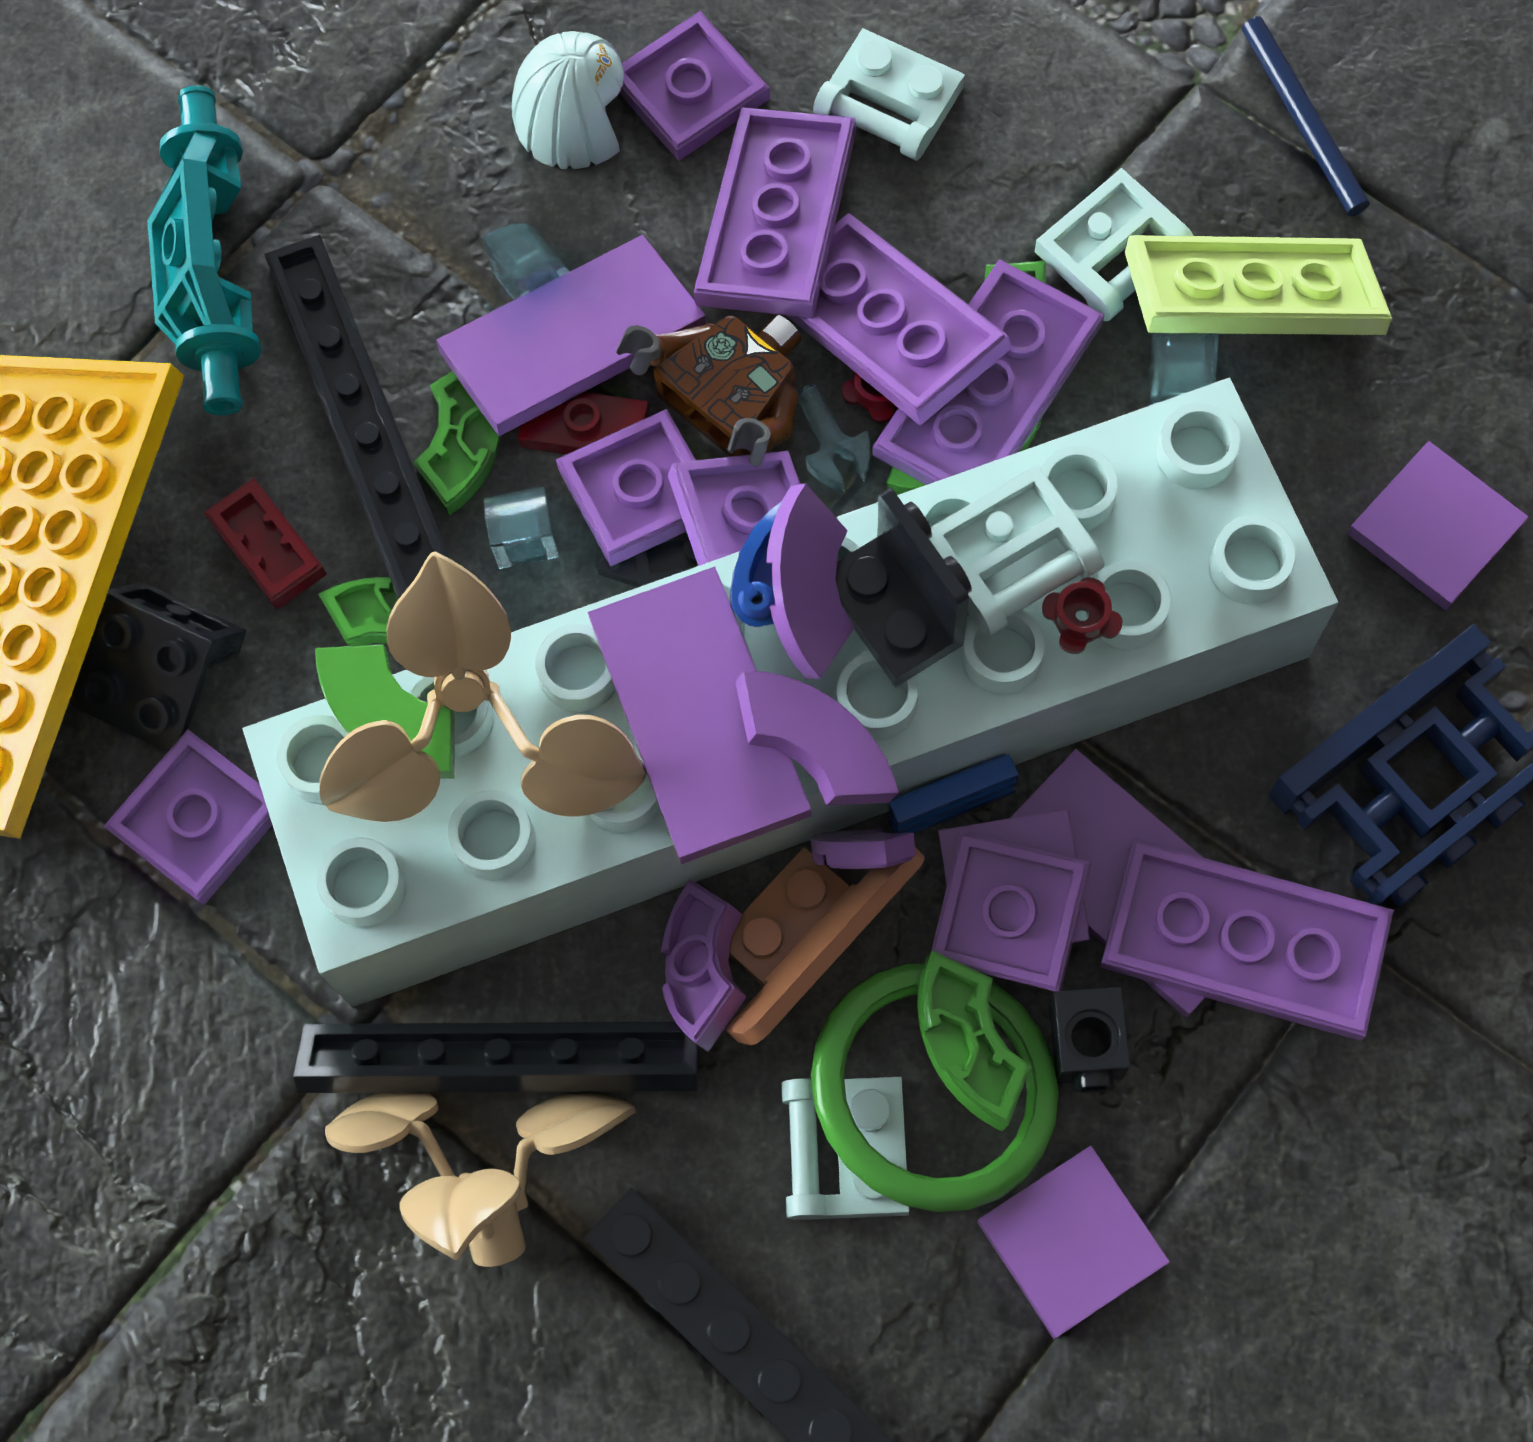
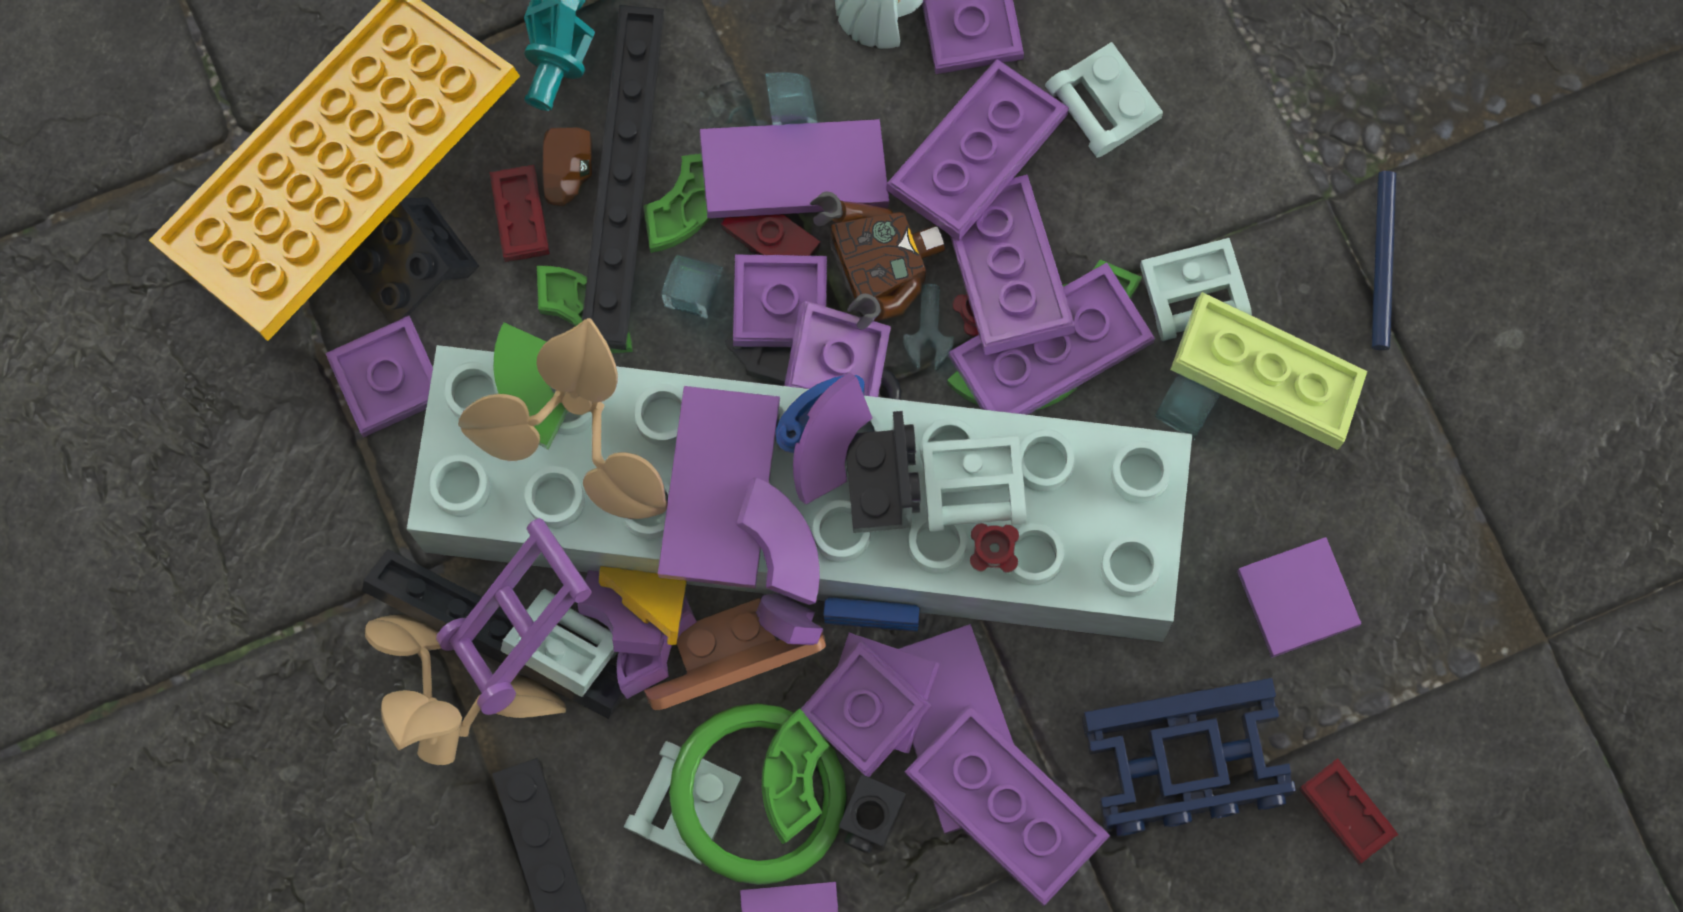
camera: 25 degrees right, 5 degrees up
(292, 457) = (566, 163): none -> reddish brown rock
(453, 1076) = (459, 633): none -> medium lavender piece
(589, 1025) = (564, 655): none -> light aqua plate
(647, 945) = (628, 631): none -> medium lavender tile
(671, 910) = (648, 597): none -> yellow tile

